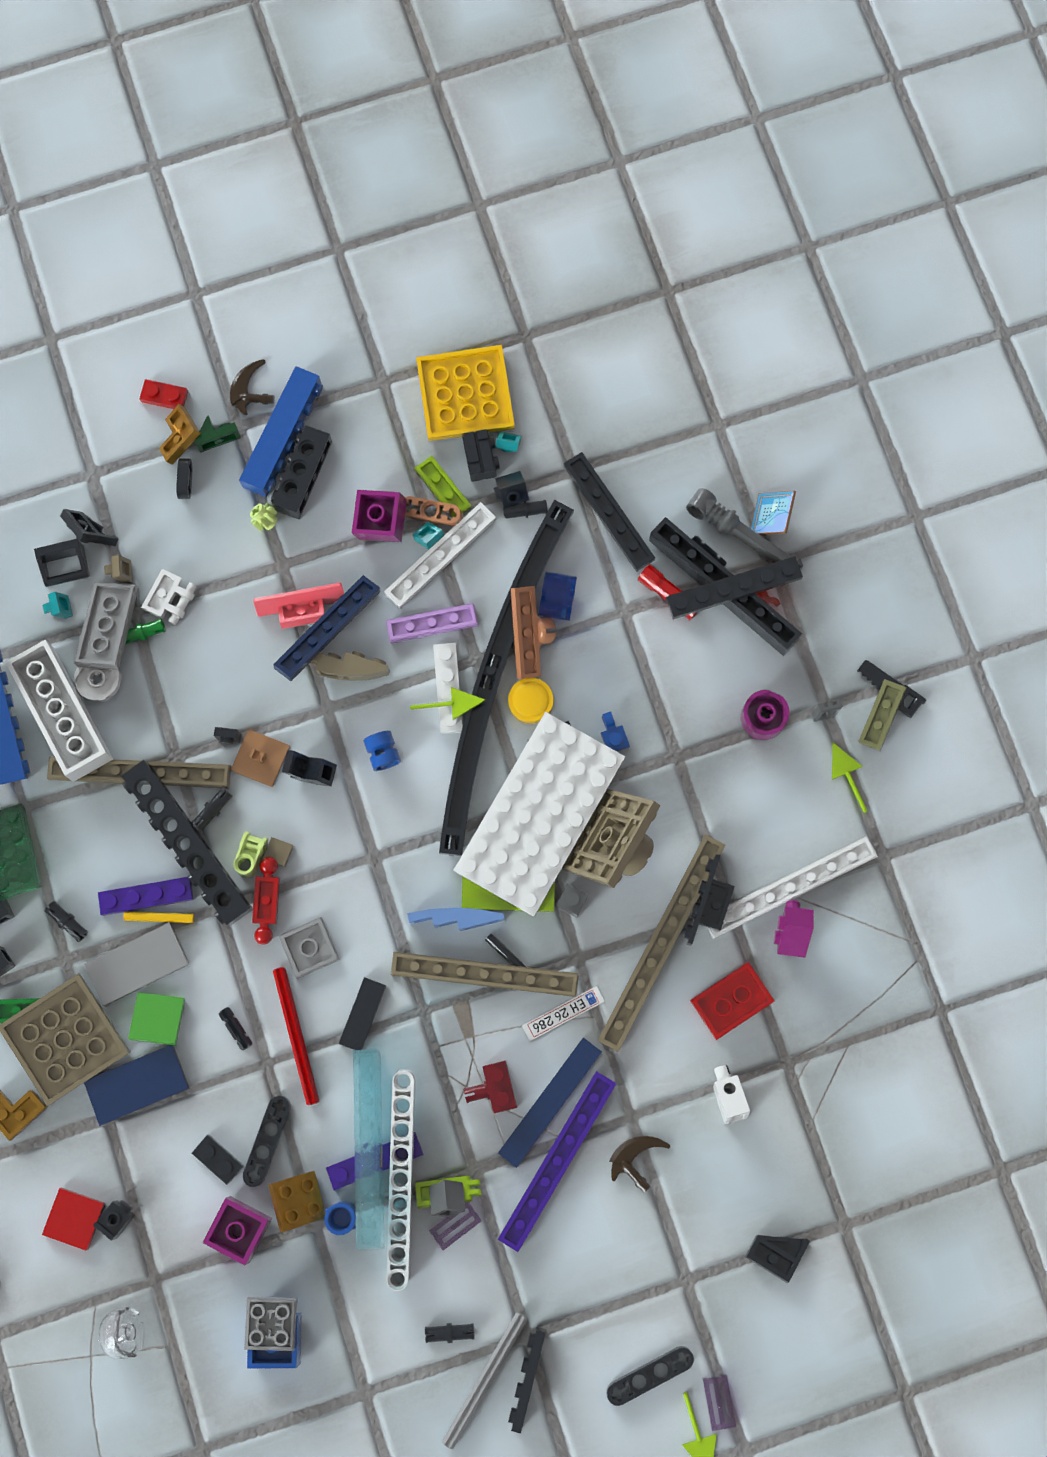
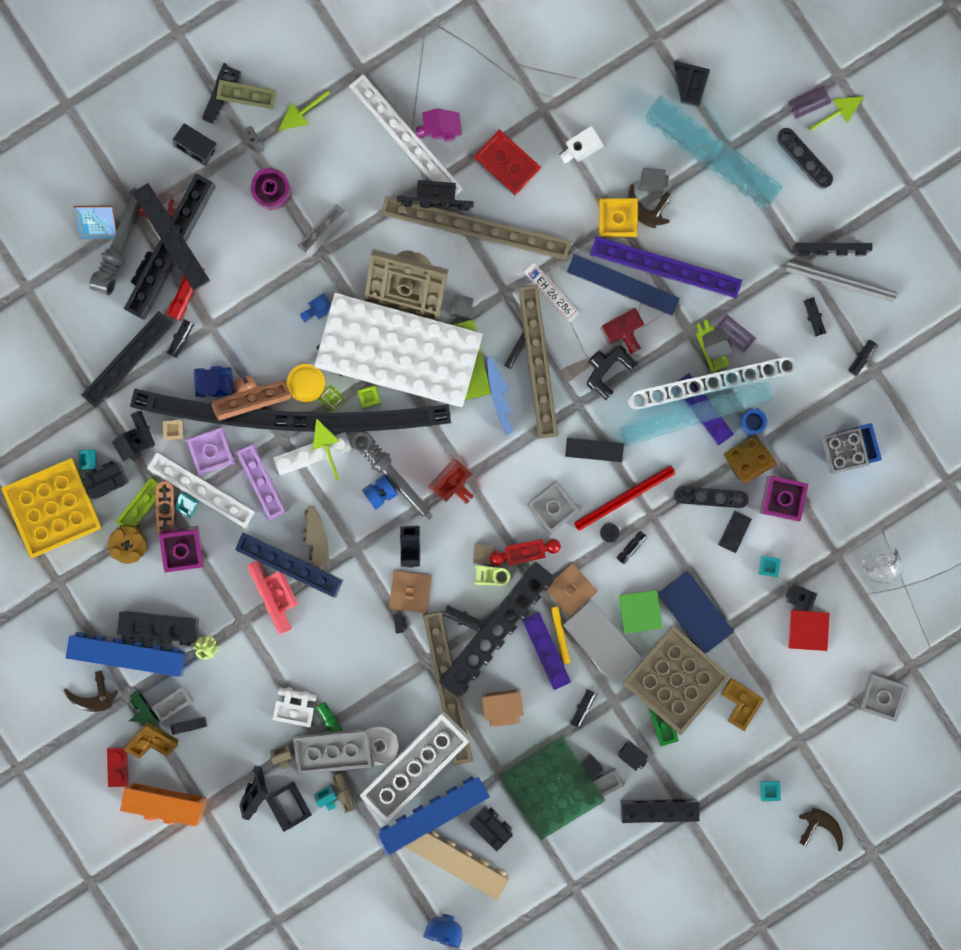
camera: 105 degrees left, 10 degrees up
(58, 626) = (343, 792): none -> dark tan pin
(94, 826) = (502, 707): none -> medium nougat piece
(105, 429) = (163, 804): none -> orange brick
(163, 1190) = (769, 566): none -> teal plate
(207, 944) = (571, 590): none -> medium nougat piece
(213, 467) = (172, 704): none -> light grey plate
(260, 1006) = (609, 532): none -> black tile
(370, 834) = (451, 481): none -> clear red brick
(382, 1381) = (862, 357): none -> black axle
(398, 451) = (118, 550): none -> pearl gold plate
(414, 762) = (382, 463): none -> dark grey piece
(461, 1052) = (602, 363): none -> black connector
(482, 576) = (210, 451): none -> lavender tile
(496, 767) = (369, 397): none -> lime tile
(506, 724) = (331, 398): none -> clear neon green tile
(516, 541) = (173, 430): none -> tan plate
(618, 574) = (180, 338): none -> black pin
(632, 1118) = (618, 217): none -> yellow tile
(668, 1174) = (653, 179): none -> dark grey brick
(684, 1259) = (713, 151): none -> clear light blue brick
(702, 763) = (323, 230): none -> light grey plate
(837, 643) = (194, 144): none -> black hinge

